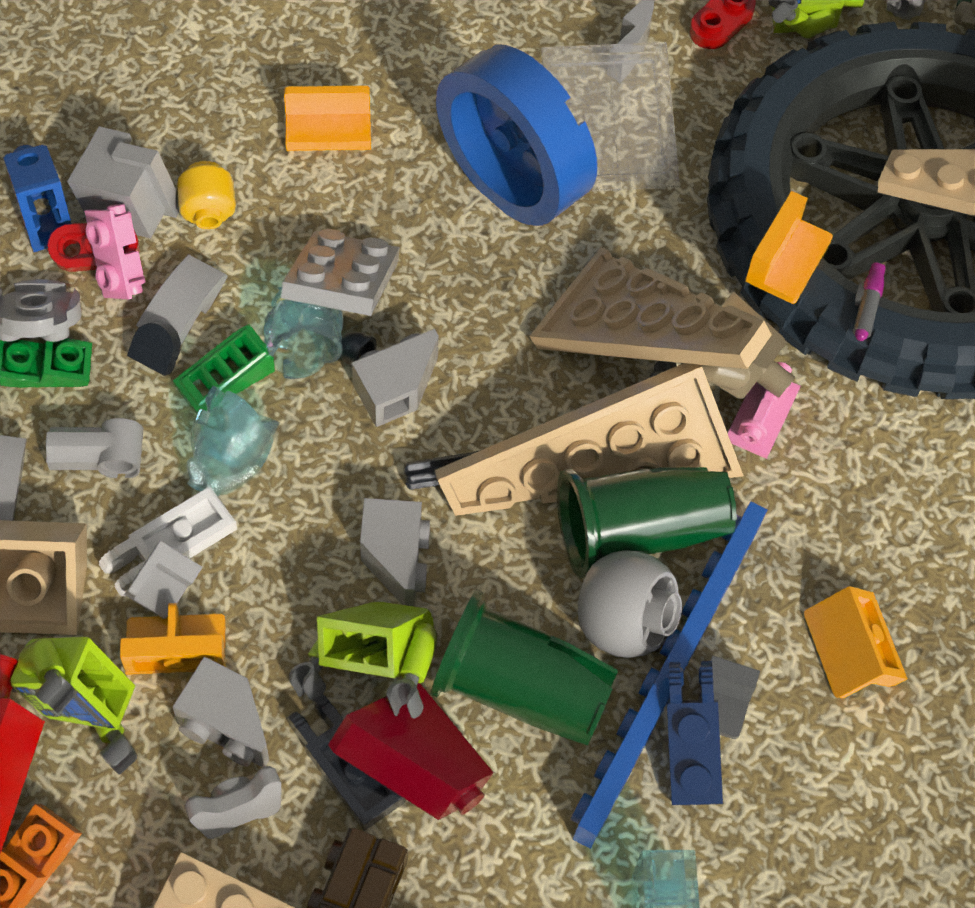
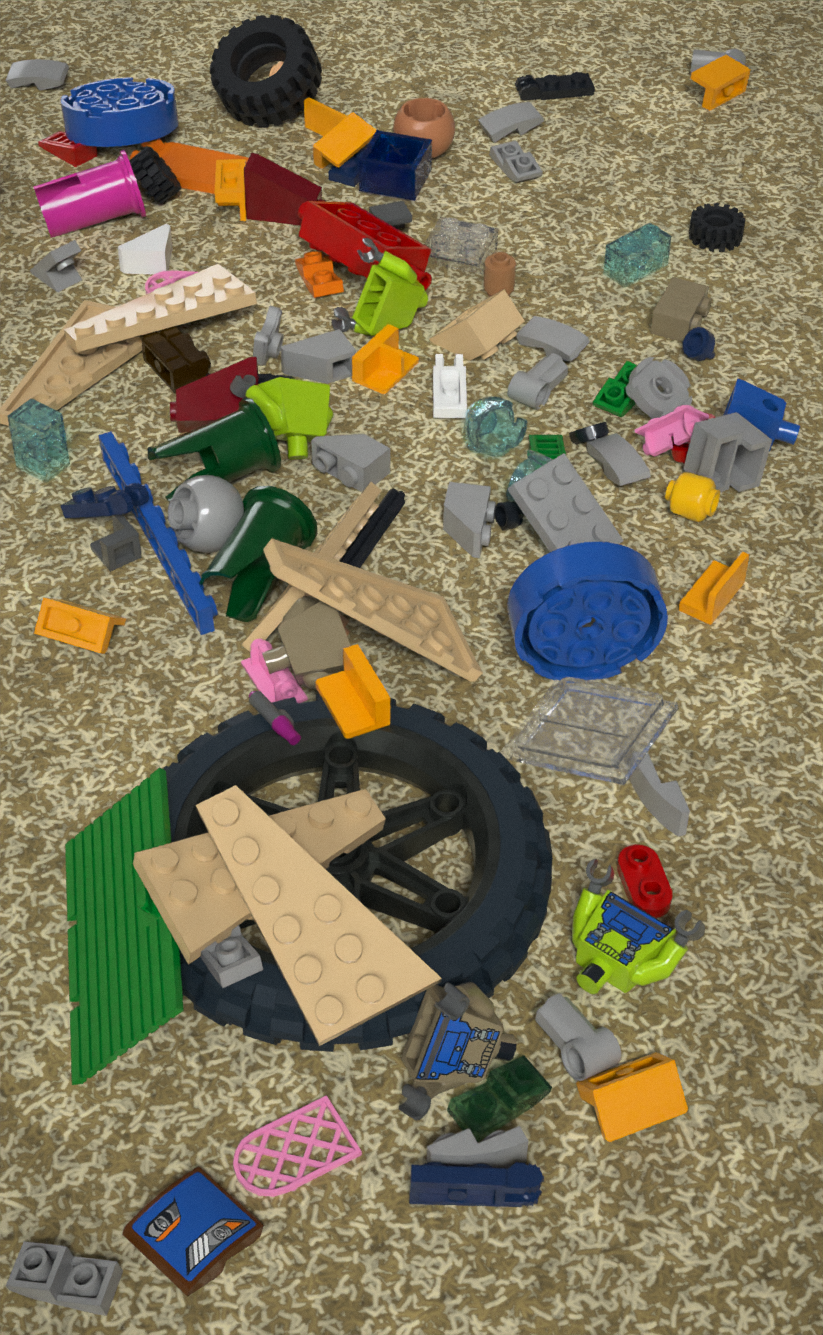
camera: 130 degrees right, 15 degrees down
(162, 579) = (423, 360): light grey panel -> none

